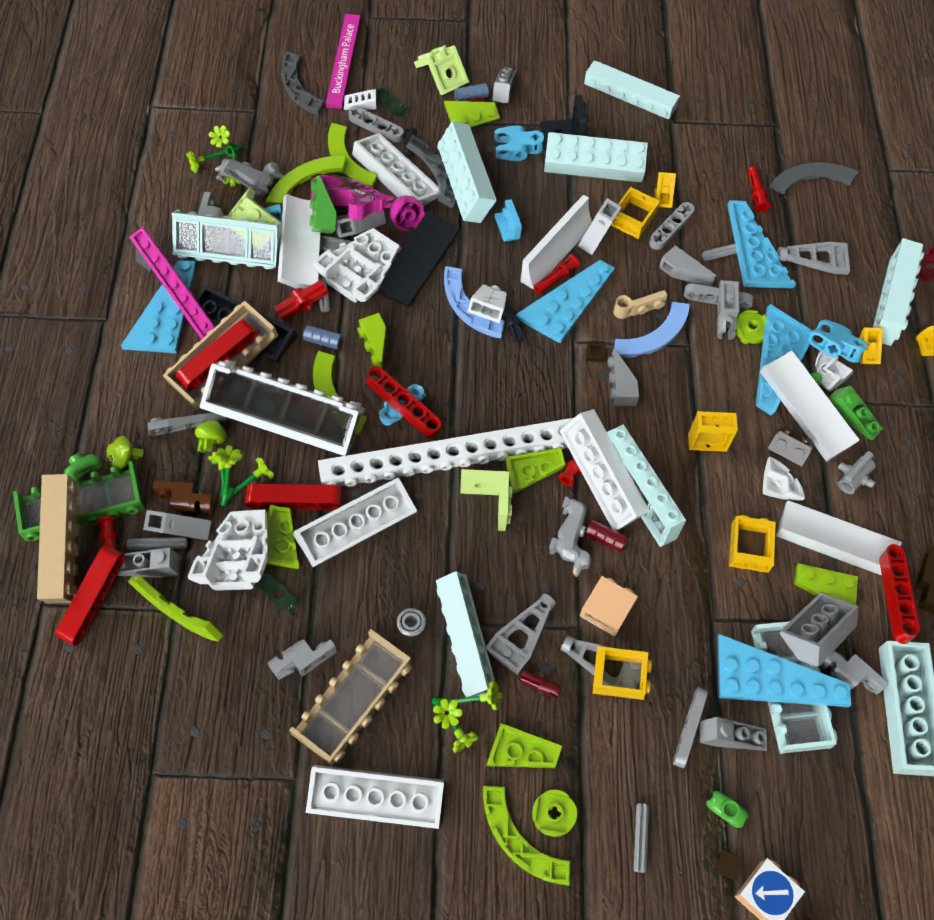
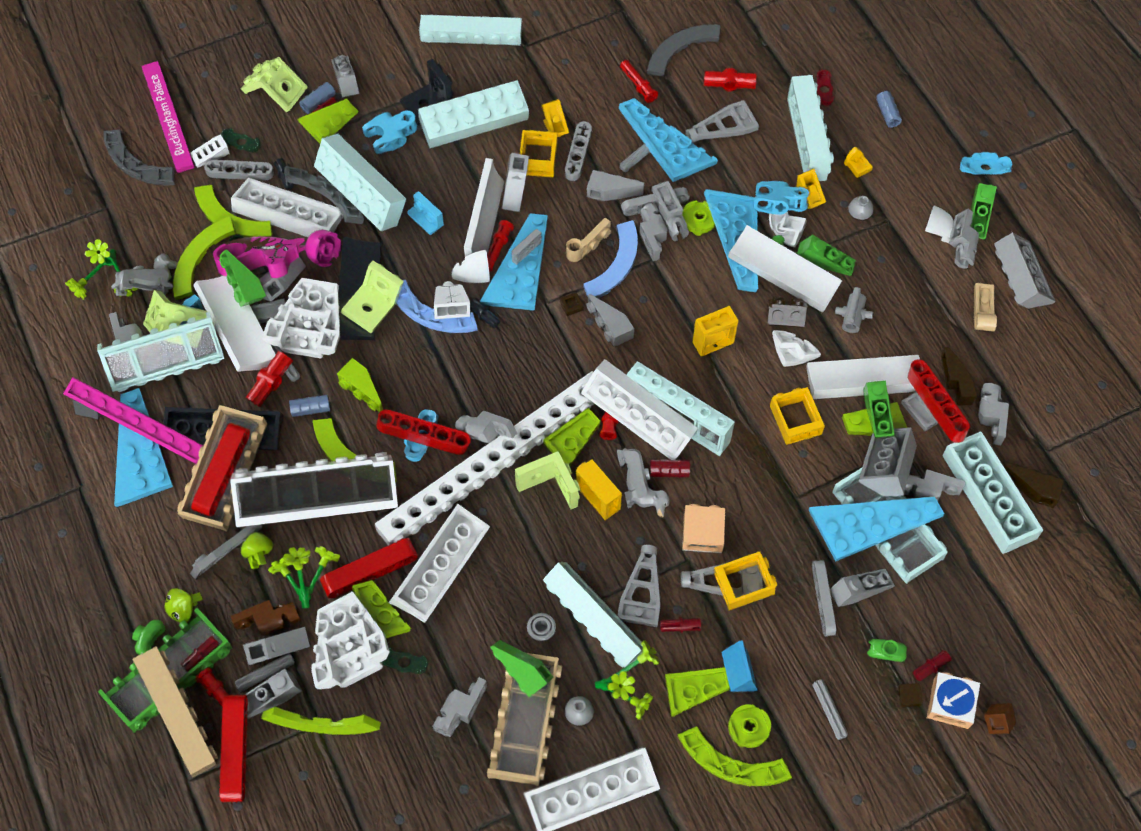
camera: 25 degrees left, 0 degrees up
(112, 500) = (200, 653): none -> dark red axle
(373, 652) = (526, 669): none -> bright green slope
(405, 716) = (579, 710): none -> light grey brick
(430, 268) = (378, 292): none -> yellowish green bracket
(459, 422) = (486, 426): none -> light grey plate
(524, 284) = (473, 268): none -> white brick
(529, 523) = (598, 489): none -> yellow window
(573, 753) = (739, 668): none -> dark azure slope
(580, 284) = (526, 246): none -> light grey tile
(703, 320) = (652, 230): none -> light grey plate
(765, 847) = (932, 665): none -> dark red axle
(835, 574) = (878, 408): none -> bright green slope
(843, 220) = (730, 79): none -> red piece
(875, 596) = (919, 411): none -> light grey tile
(912, 383) = (861, 207): none -> light grey brick

